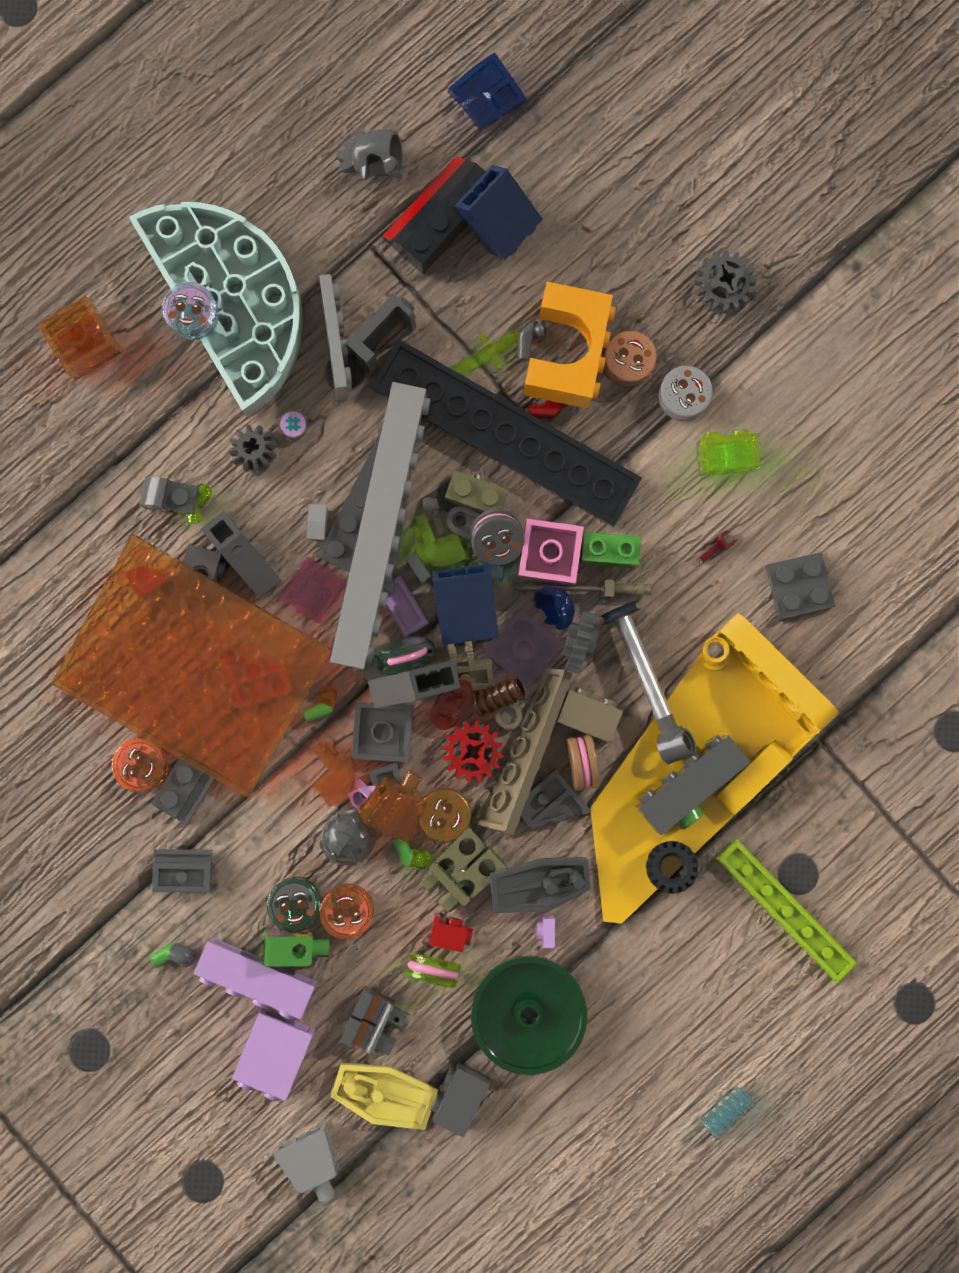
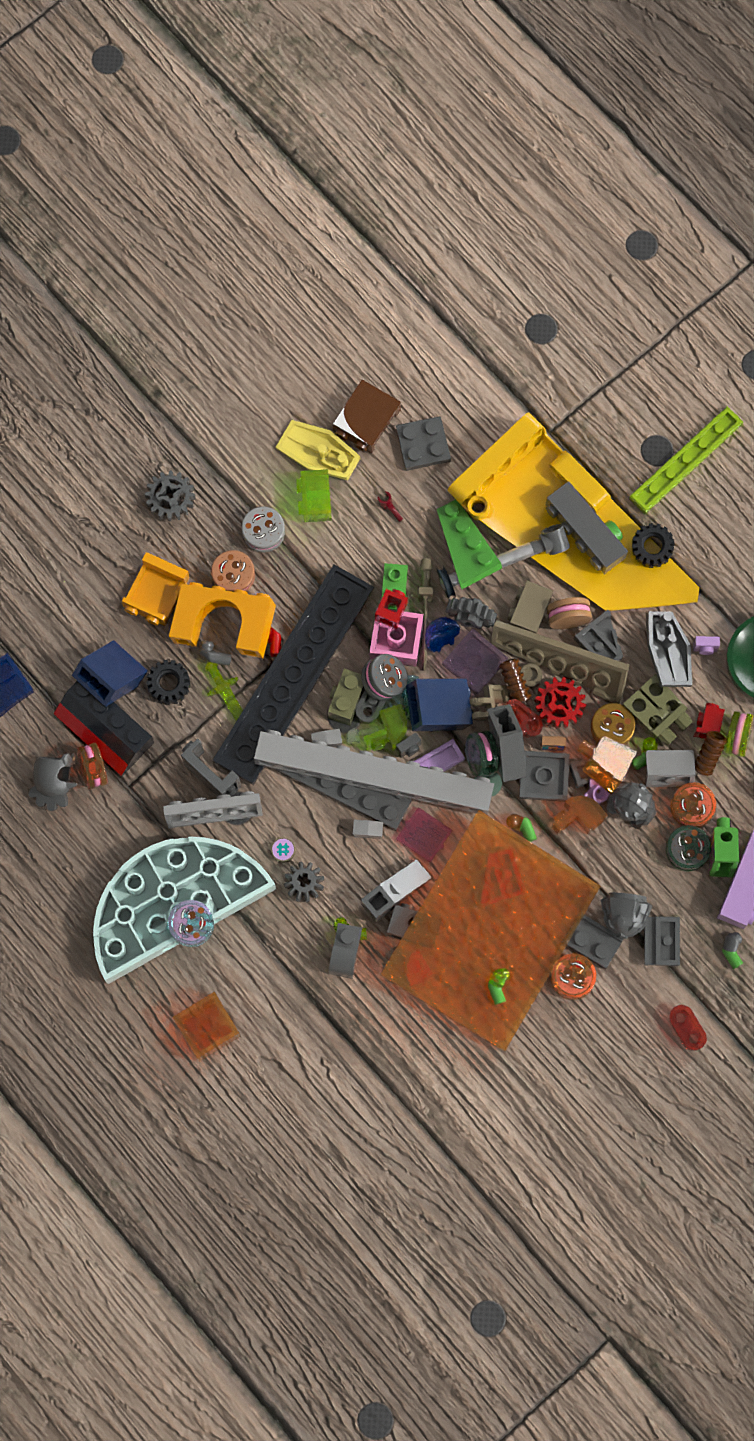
camera: 85 degrees left, 10 degrees down
(80, 899) = (689, 1027): none -> clear red plate
(123, 672) = (496, 983): none -> arm
(208, 827) = (625, 913): none -> dark grey helmet
(388, 197) = (91, 766): none -> clear orange head
(392, 884) = (669, 768): none -> light grey panel
(408, 933) = (710, 753): none -> reddish brown piece
(422, 739) = (553, 743): none -> medium nougat tile
(426, 472) = (331, 737): none -> light grey piece
(498, 270) = (168, 668): none -> black tyre
(577, 532) = (388, 617): none -> red brick
(606, 267) = (155, 590): none -> light orange panel
(662, 638) = (468, 548): none -> bright green wing
(787, 458) = (318, 449): none -> light yellow piece
(832, 514) = (366, 416): none -> reddish brown panel

